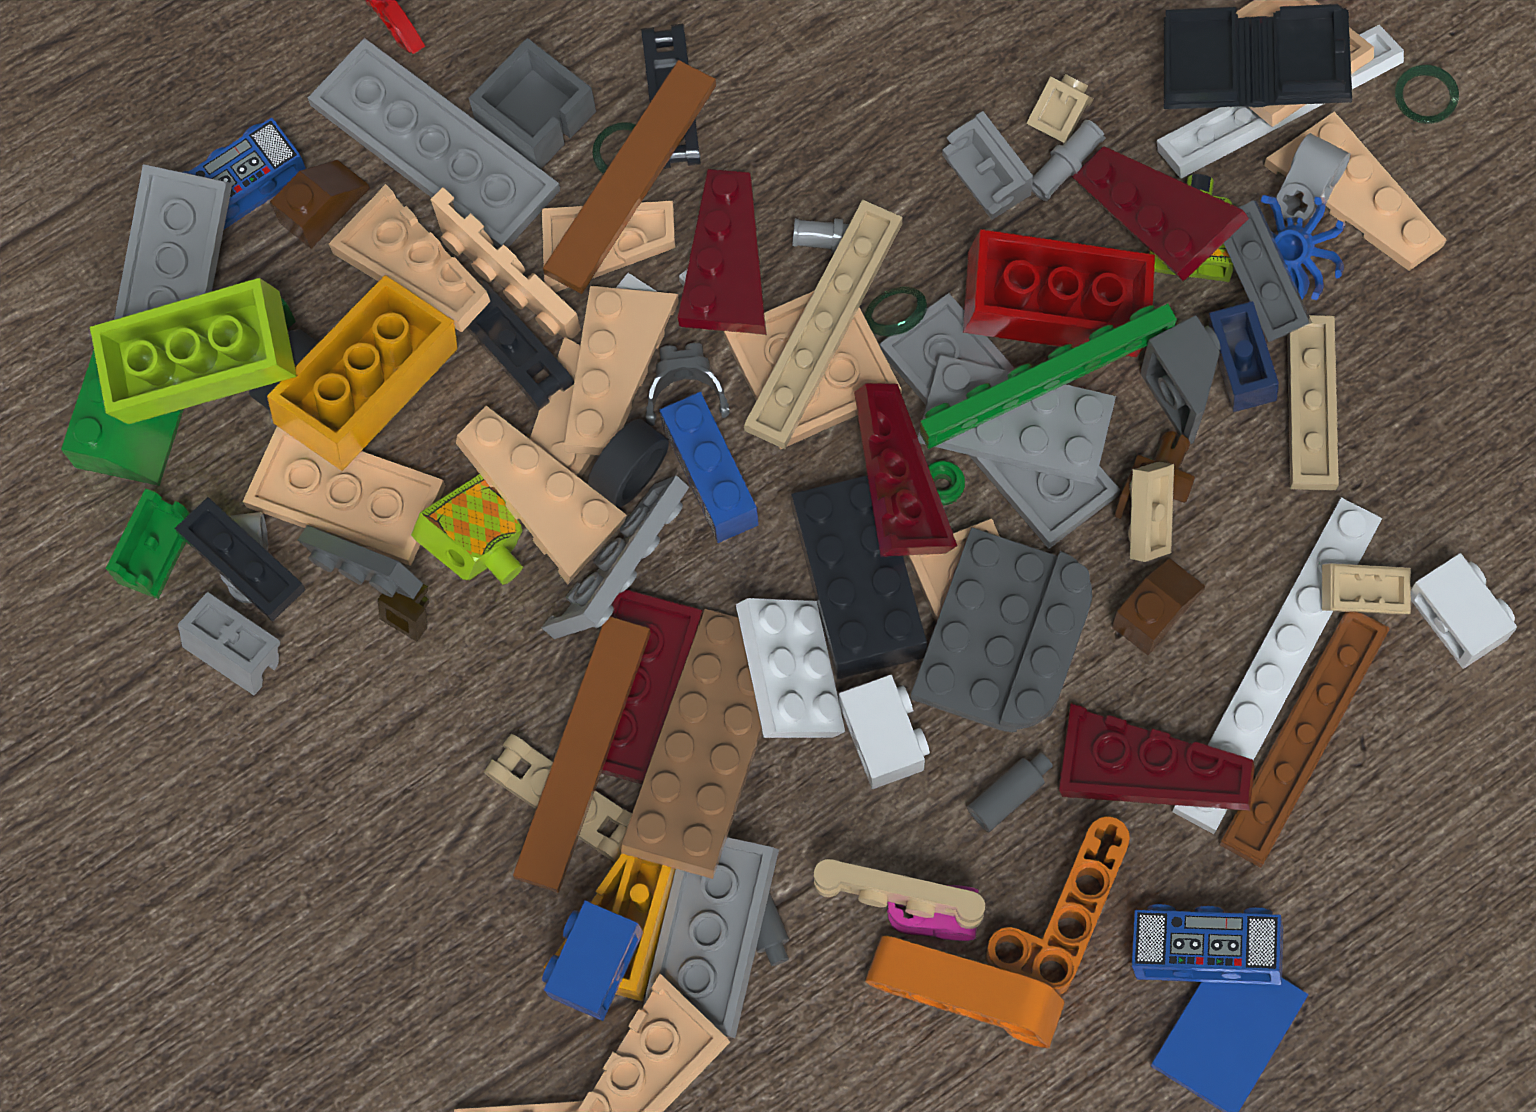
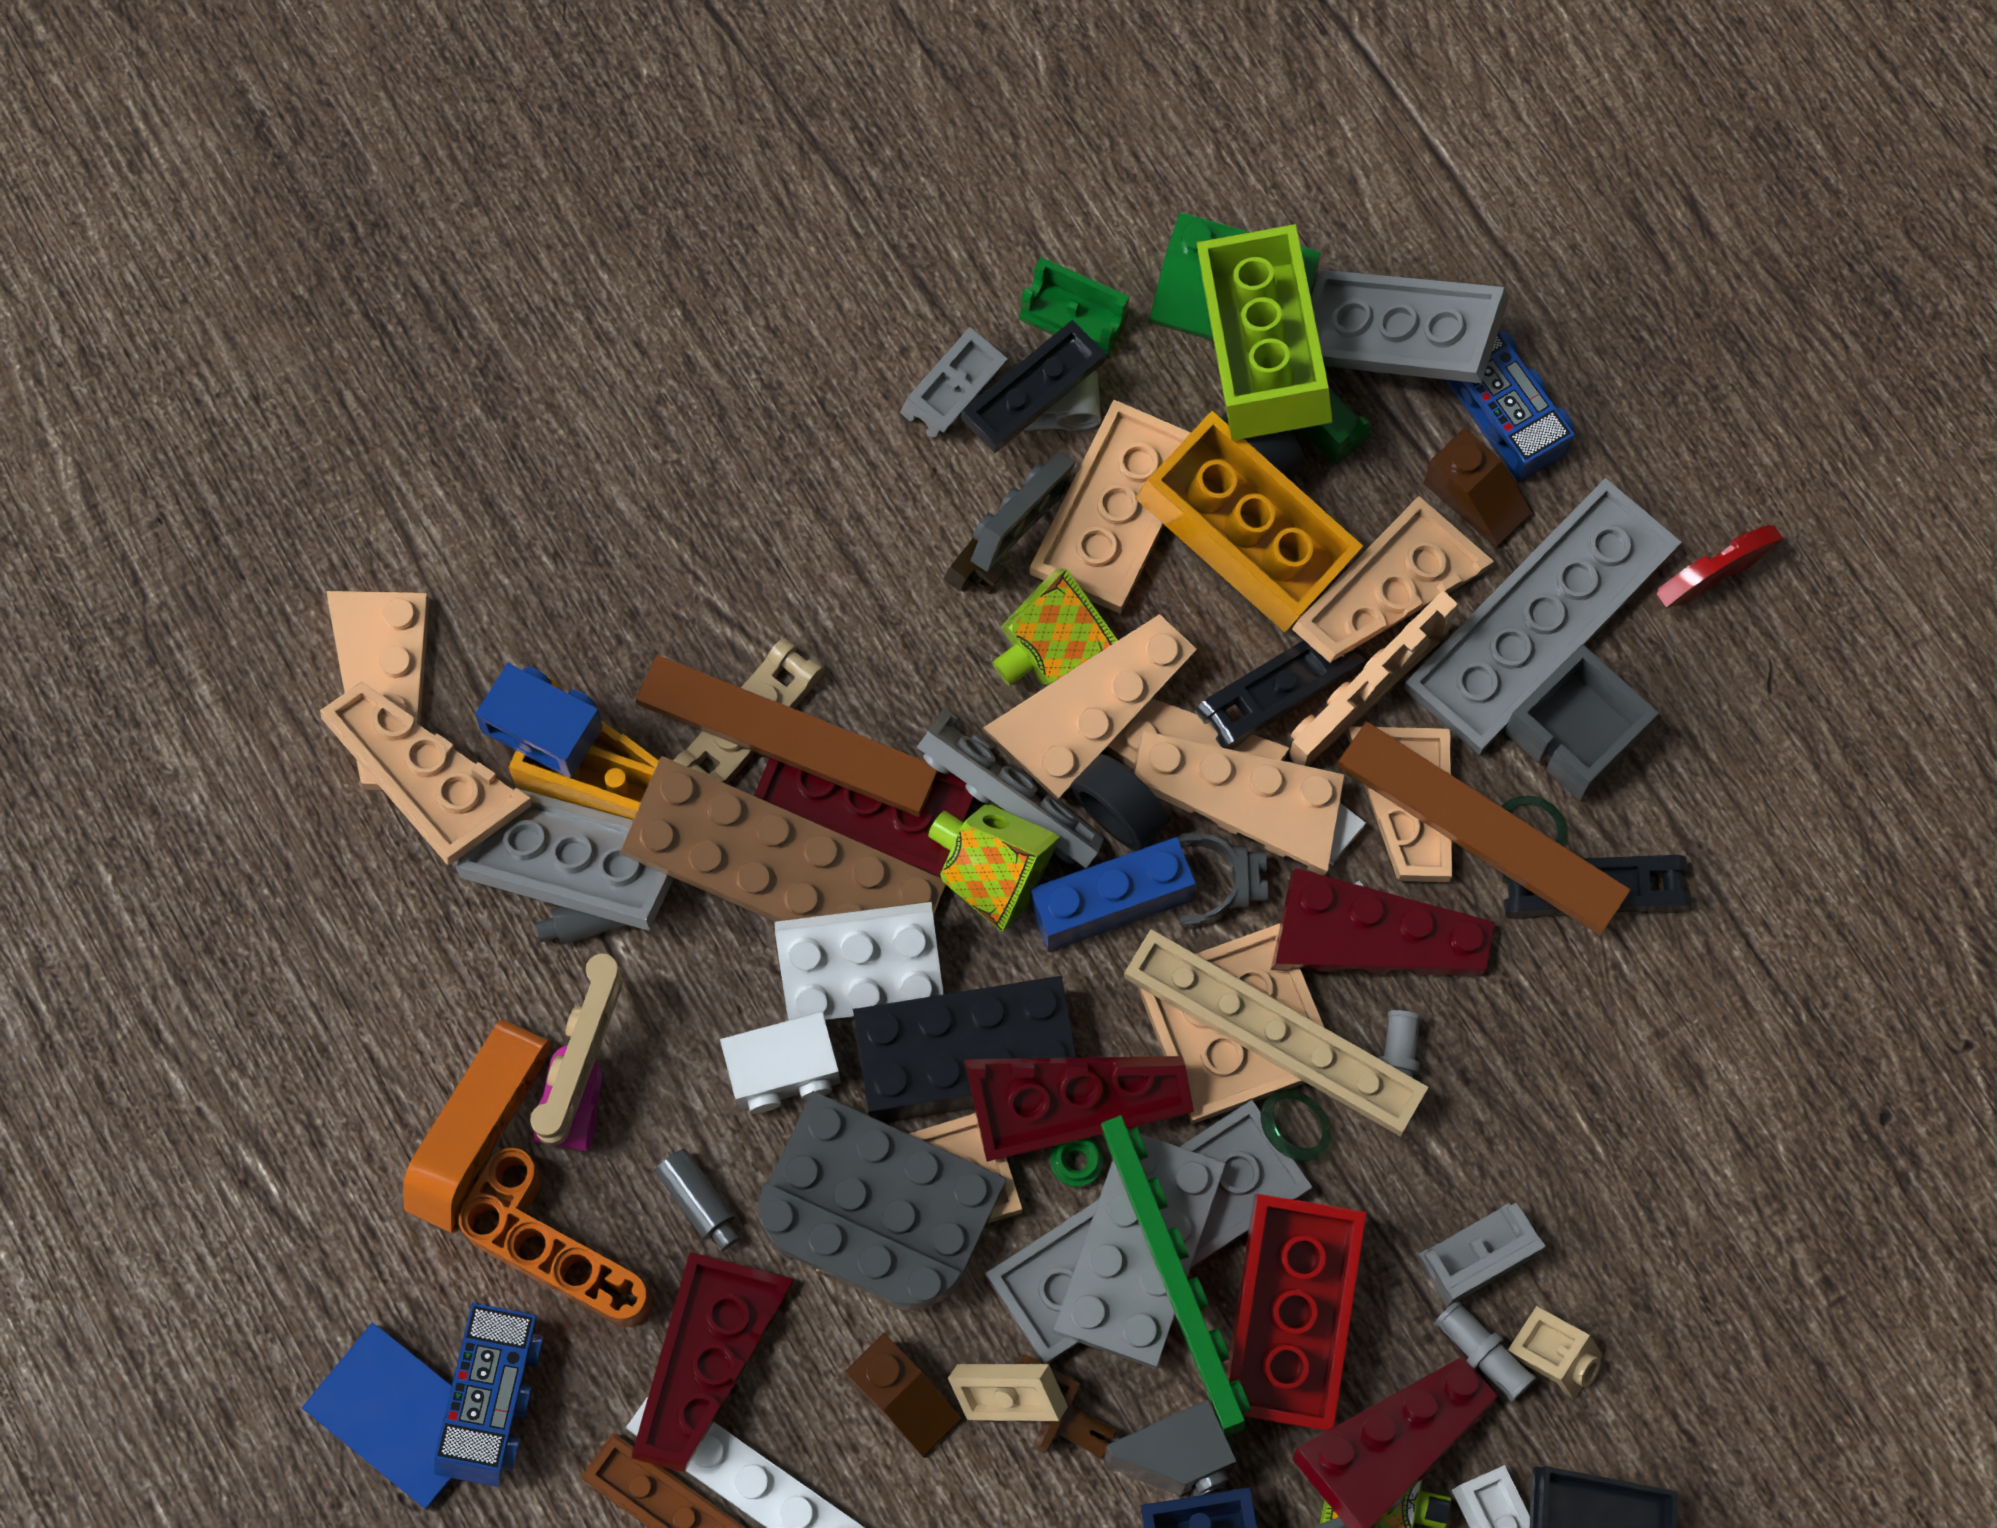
camera: 90 degrees right, 0 degrees up
(689, 560) = (994, 860): none -> lime torso

